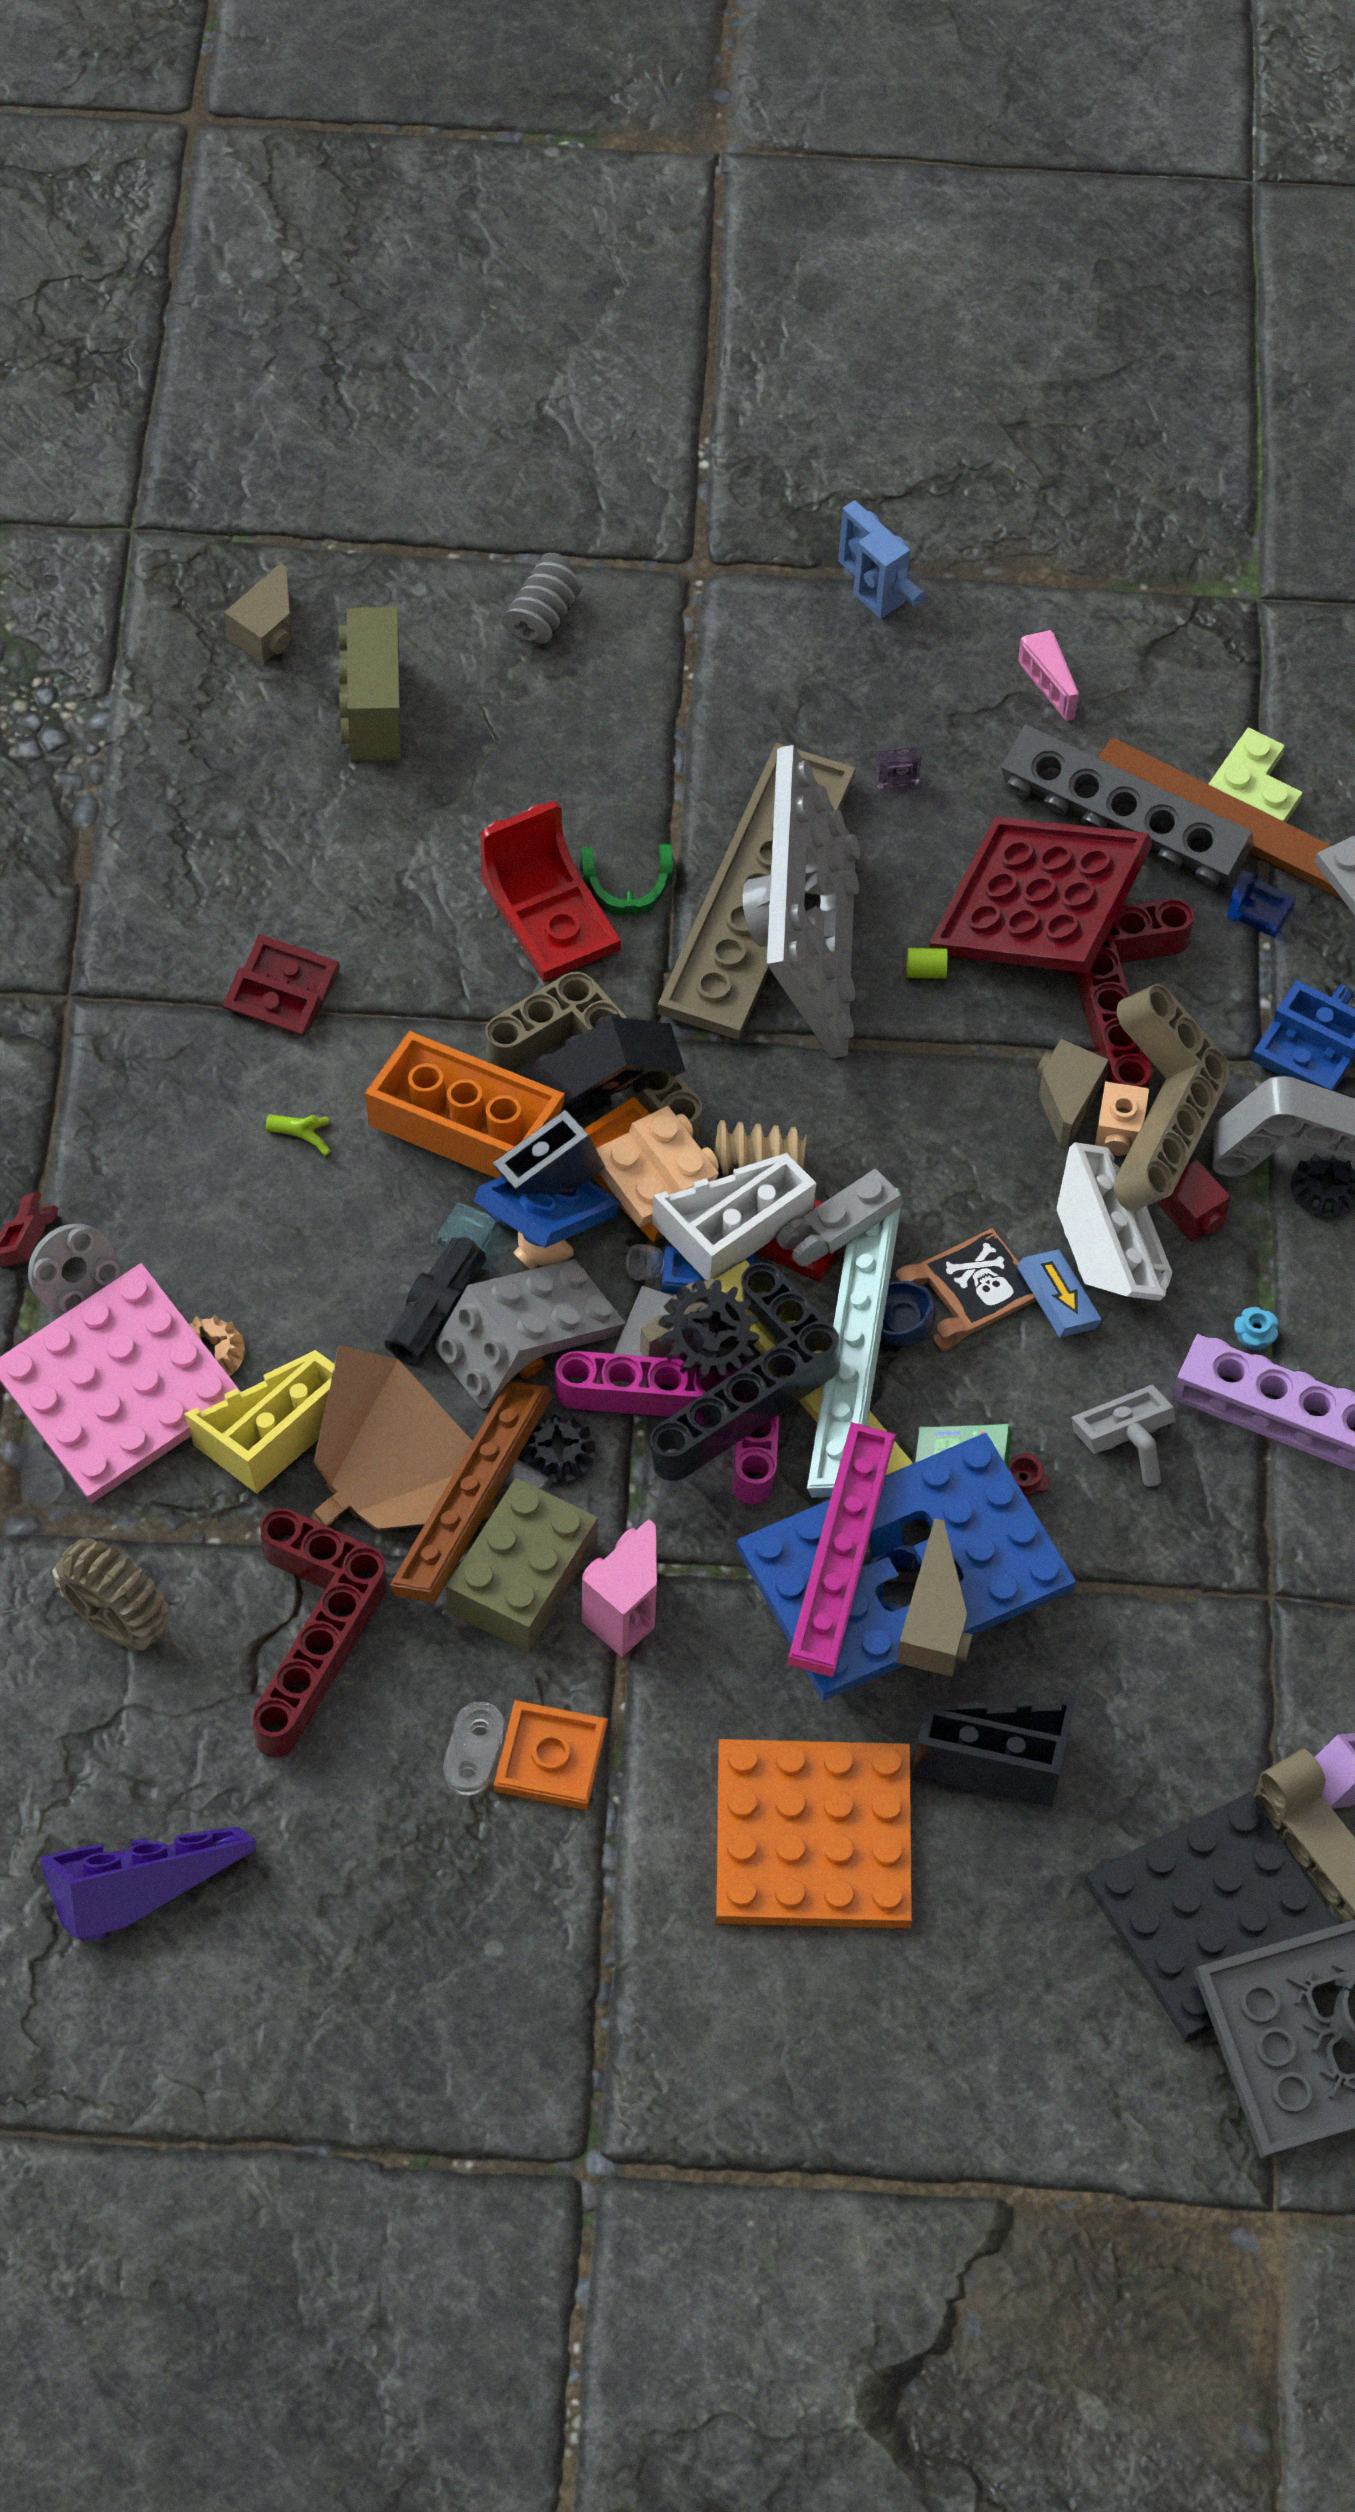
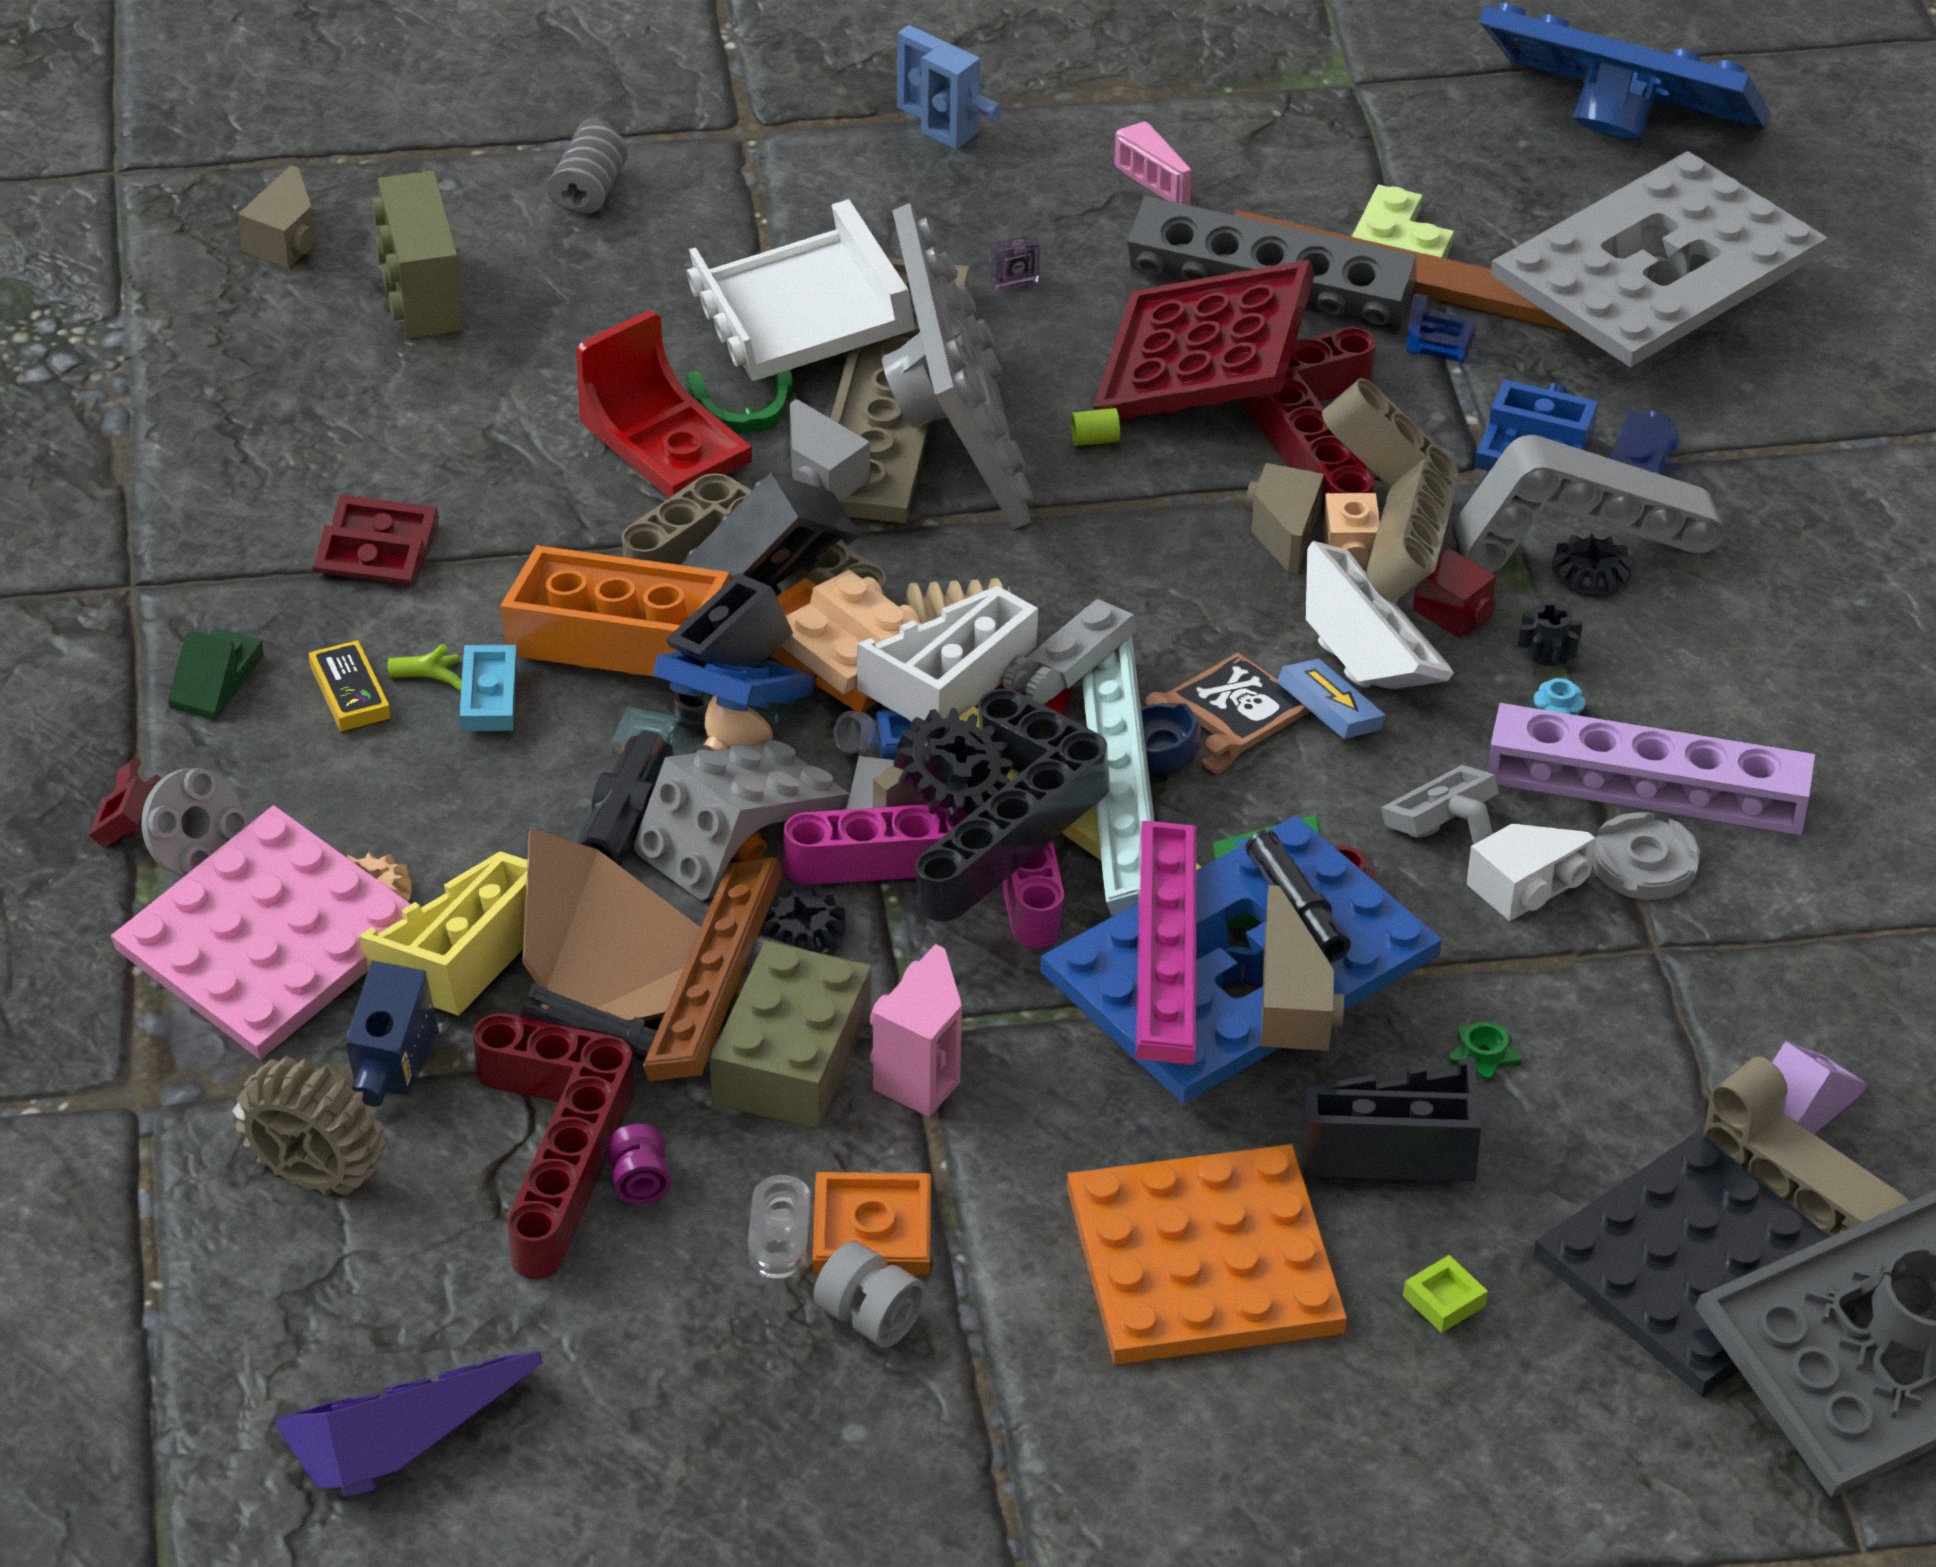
camera: 10 degrees left, 15 degrees down
(120, 1102) = (212, 670): none -> dark green slope
(193, 1512) = (390, 1031): none -> dark blue torso
(230, 1136) = (349, 685): none -> tile
(345, 1161) = (488, 688): none -> medium azure plate
(355, 1525) = (581, 1016): none -> black pin
(372, 1669) = (639, 1164): none -> magenta wheel
(535, 1836) = (871, 1295): none -> light grey wheel
(677, 970) = (827, 452): none -> light grey slope
(695, 783) = (804, 298): none -> white panel
(962, 1532) = (1312, 907): none -> black pin
(998, 1911) = (1445, 1293): none -> lime plate
(1097, 1661) = (1486, 1036): none -> green plate
(1179, 1500) = (1528, 866): none -> white slope
(1265, 1258) = (1550, 633): none -> black gear
(1286, 1502) = (1645, 856): none -> light grey tile

